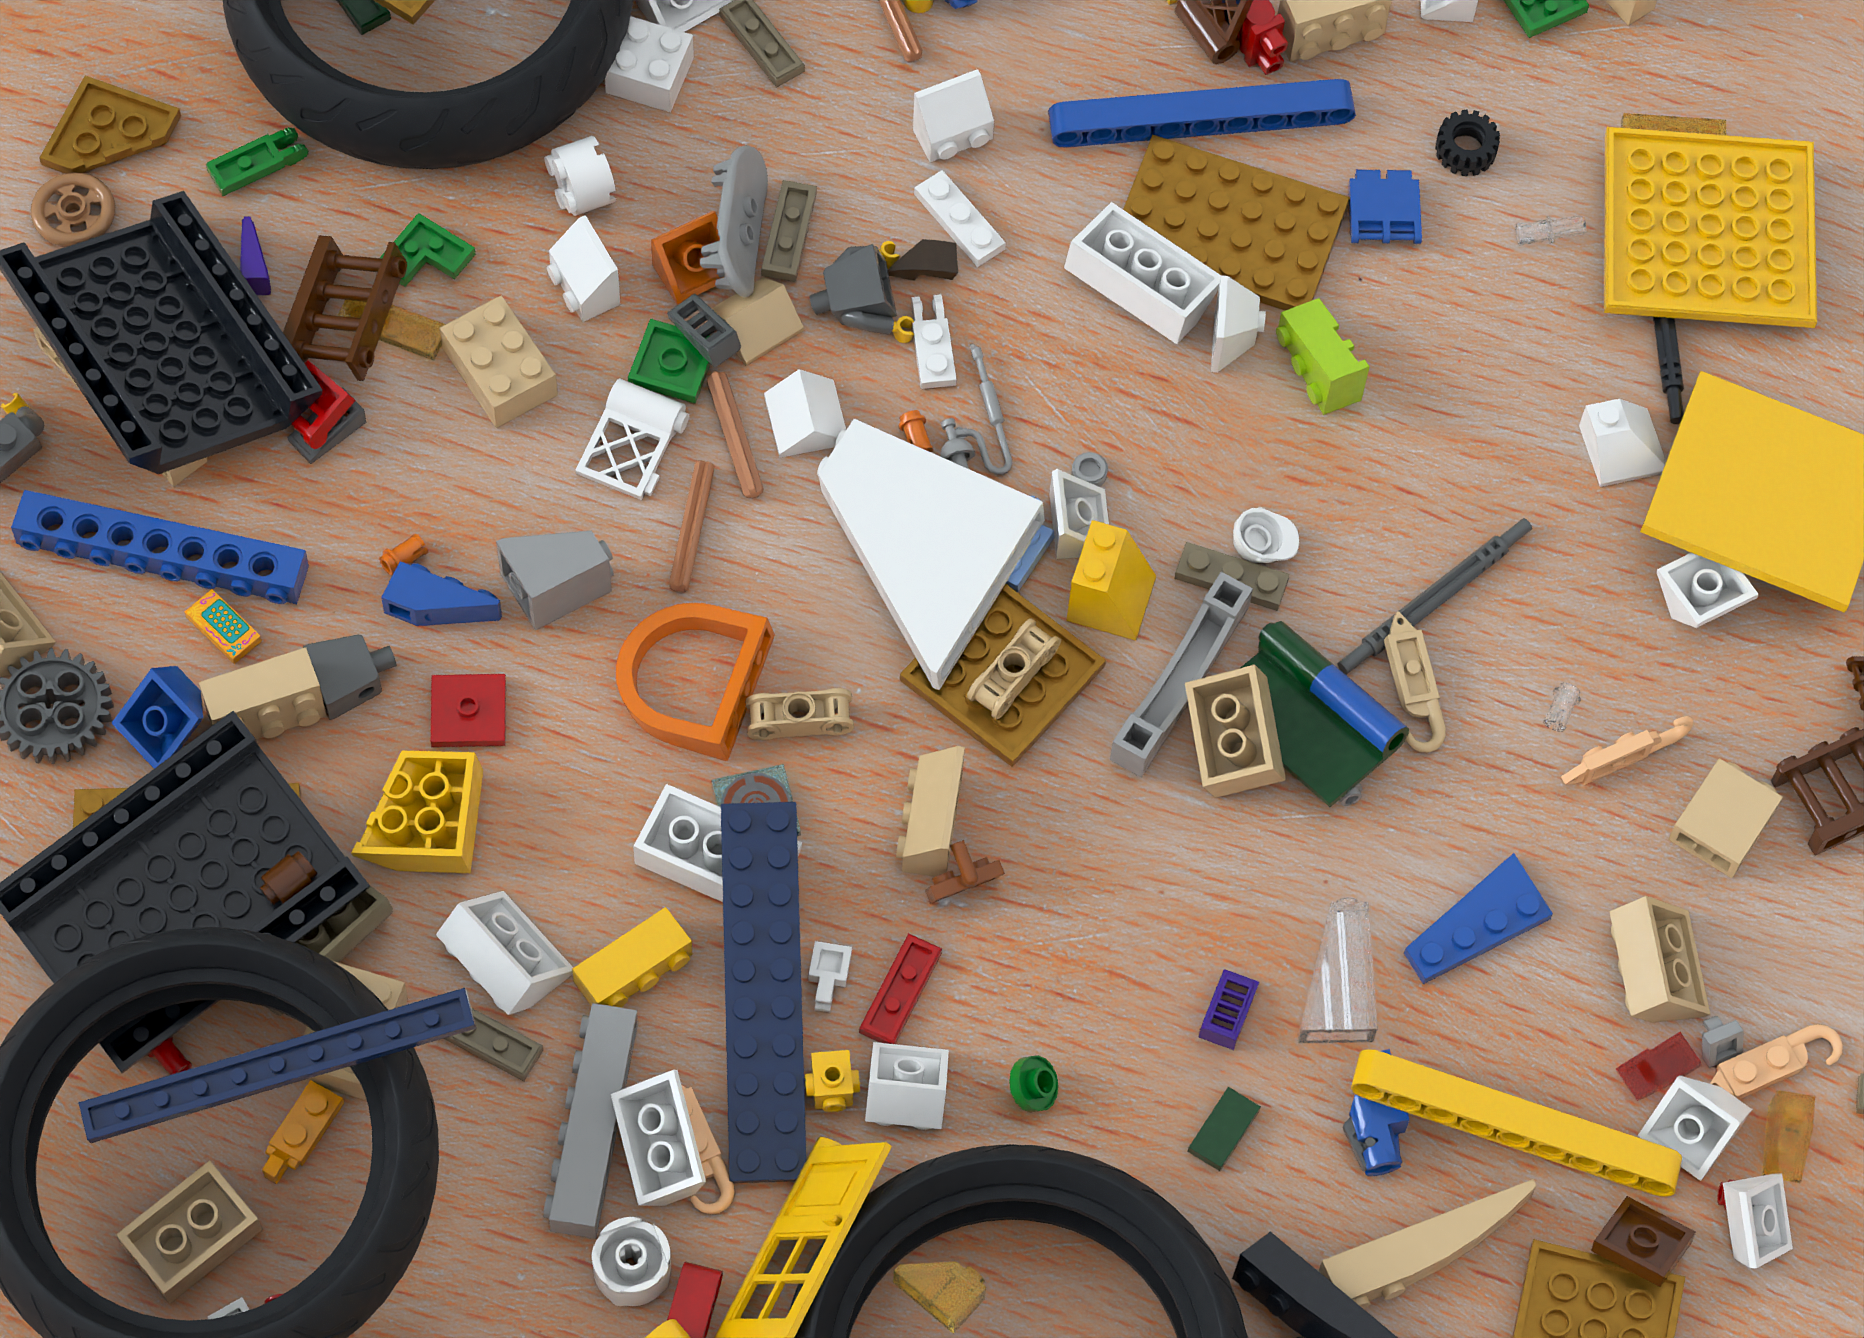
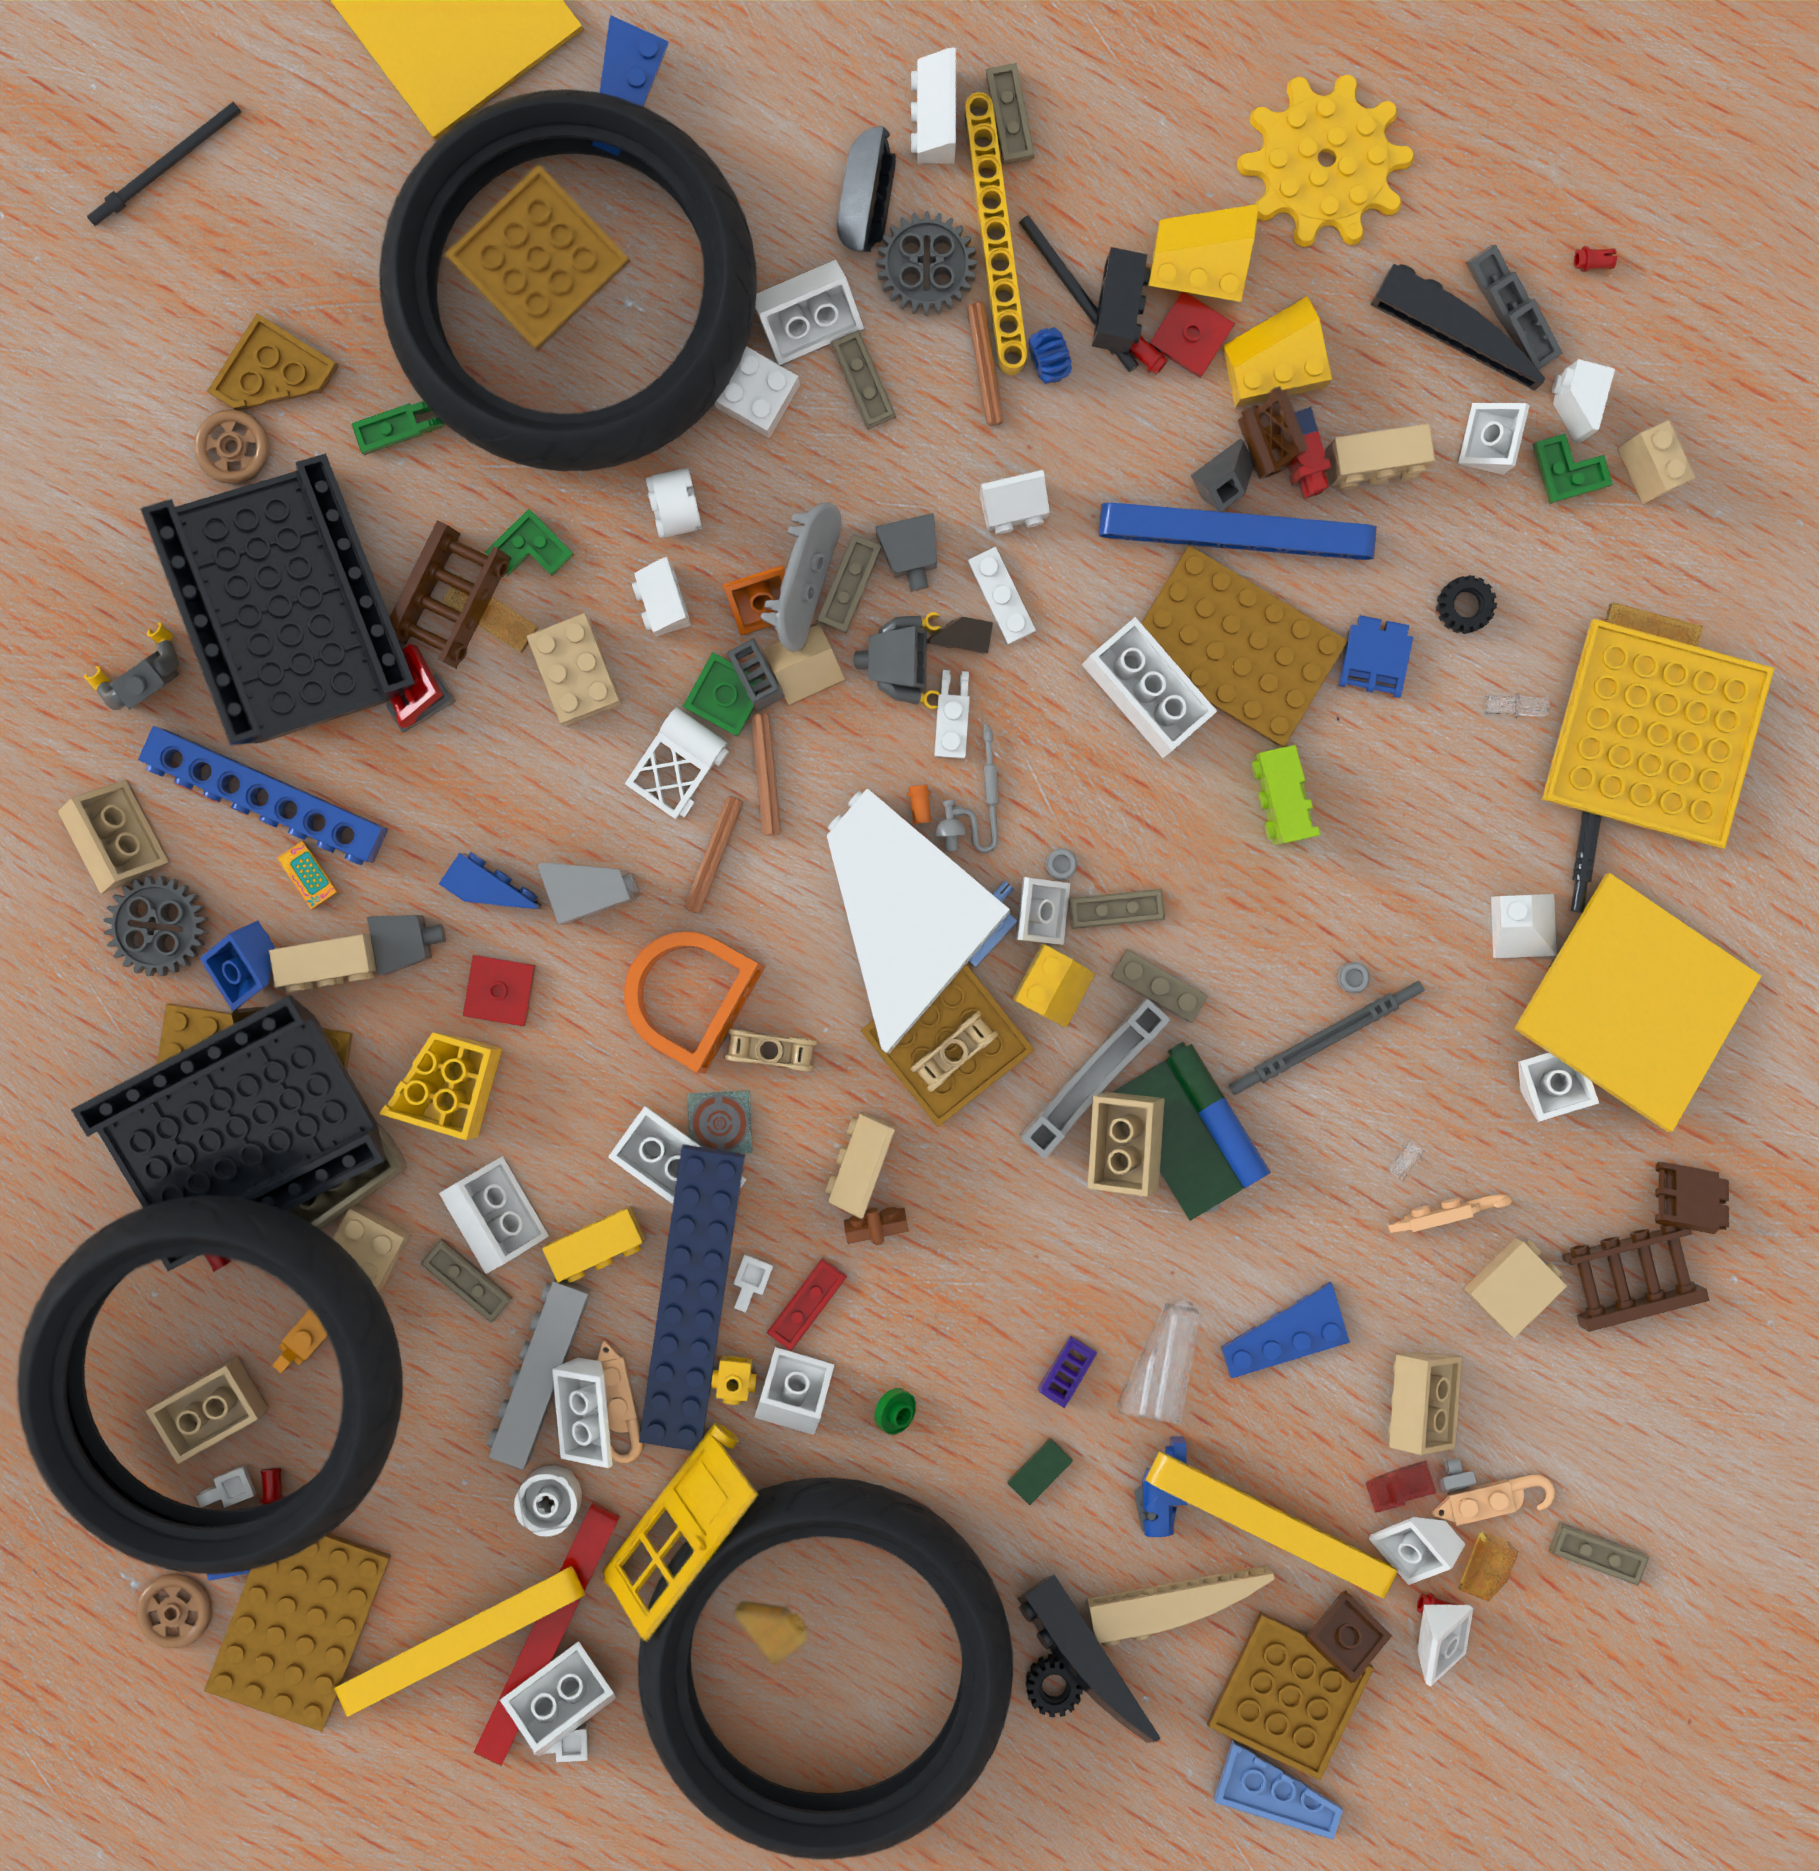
camera: 15 degrees right, 25 degrees up
(252, 260) = (378, 531): dark purple slope -> none
(277, 1065) = (266, 1358): dark blue plate -> none
(287, 878) = (319, 1139): reddish brown brick -> none
(405, 552) = (466, 838): orange pin -> none
(804, 413) = (830, 766): white slope -> none
(848, 184) = (910, 548): none -> dark grey torso
(1164, 505) = (1116, 908): none -> dark tan tile
(1173, 62) = (1225, 476): none -> dark grey slope
(1235, 322) = (1216, 752): white slope -> none
(1265, 536) = (1195, 961): white hat -> none
(1415, 680) = (1289, 1115): tan plate -> none
(1448, 530) = (1353, 977): none -> light grey tile

